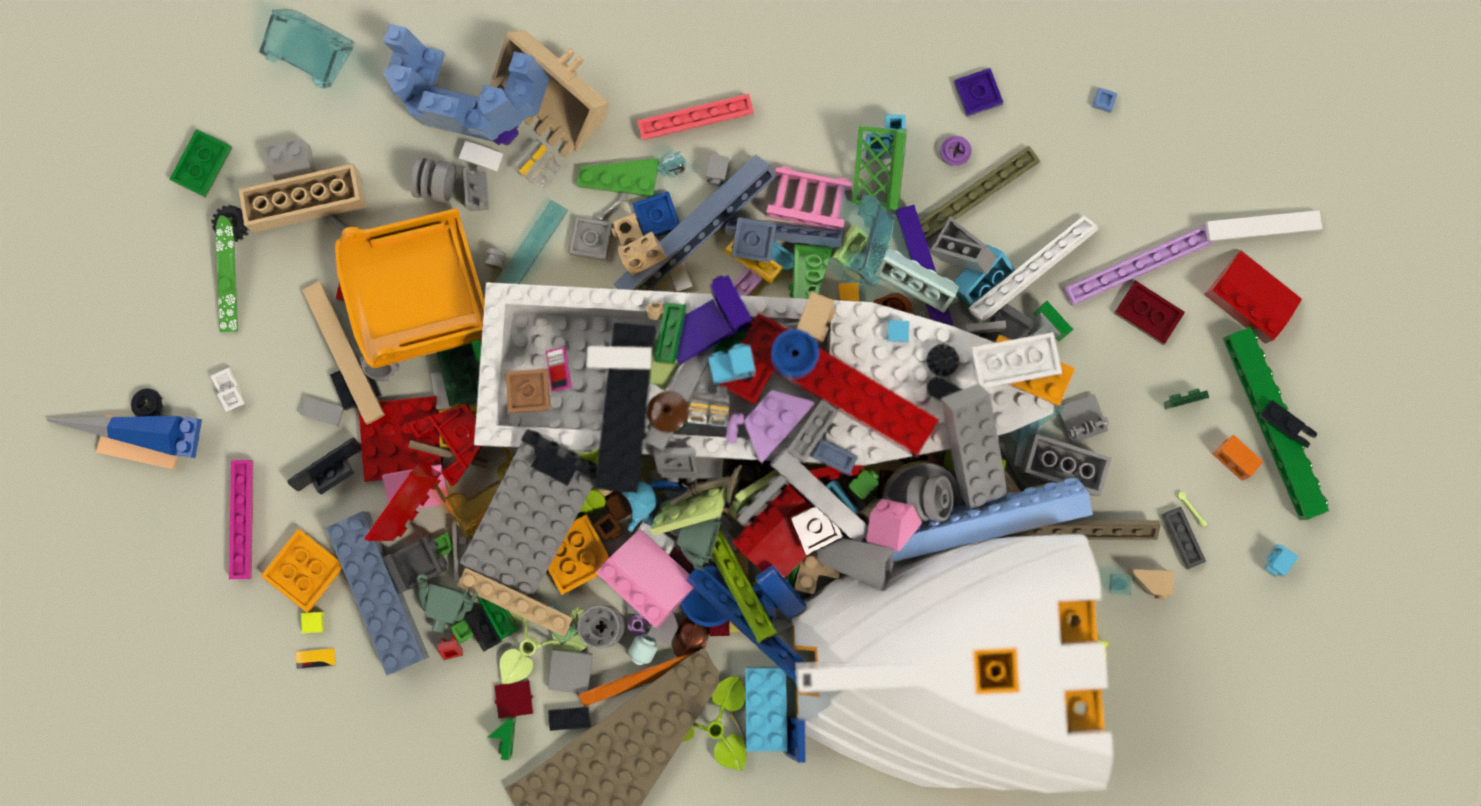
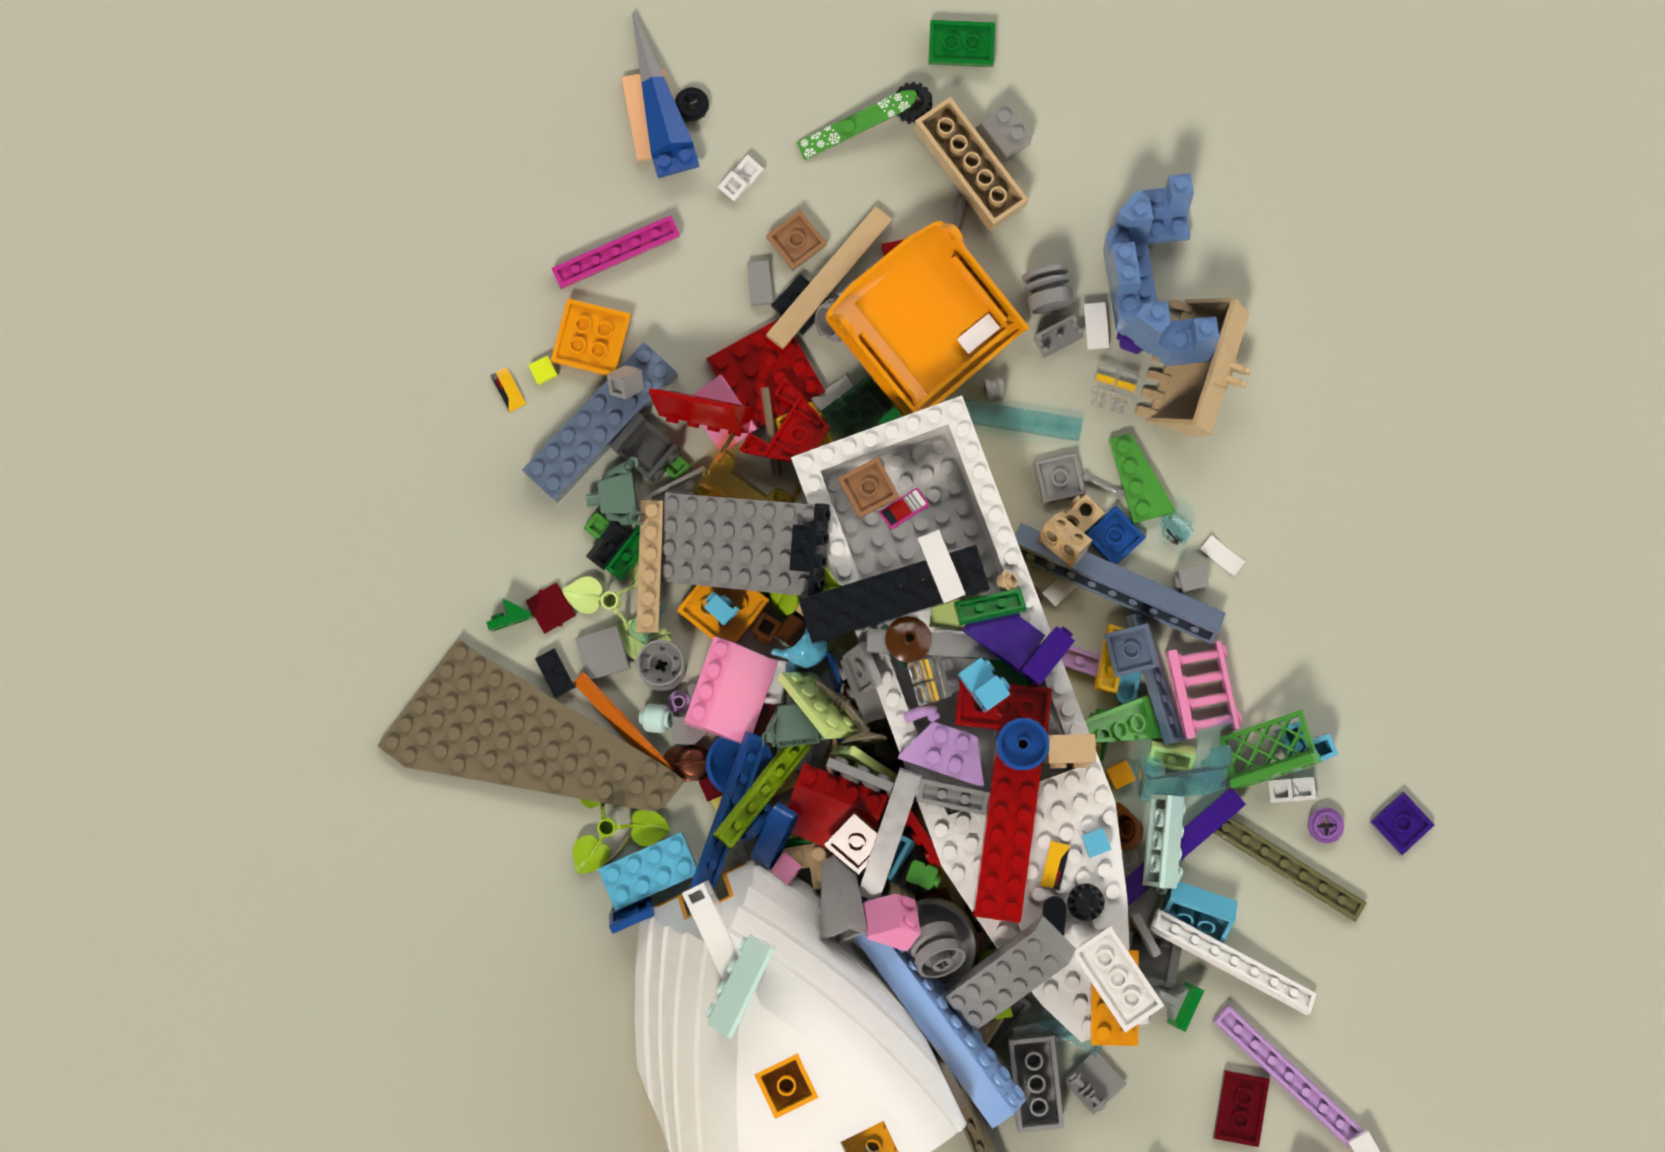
camera: 65 degrees right, 0 degrees up
(300, 366) = (796, 240): none -> medium nougat plate
(306, 45) = (1133, 94): clear light blue windscreen -> none
(327, 470) = (702, 317): black bracket -> none
(351, 557) = (625, 382): none -> light grey panel
(444, 251) = (978, 333): none -> white sticker
(449, 649) = (574, 521): red tile -> none
(575, 556) = (721, 607): none -> medium azure brick
(695, 117) = (1238, 532): coral plate -> none
(709, 138) = (1222, 555): none -> white sticker
(811, 594) = (786, 868): none -> bright pink tile
(834, 456) = (936, 831): sand blue tile -> none
(898, 674) = (740, 986): none -> light aqua slope
(902, 372) = (1055, 865): none -> yellow sticker
(917, 164) = (1292, 789): none -> white slope
(962, 249) = (1219, 876): light grey wedge -> none
(1041, 532) = (955, 1089): none -> light grey tile
(1104, 100) = (1455, 964): medium blue tile -> none

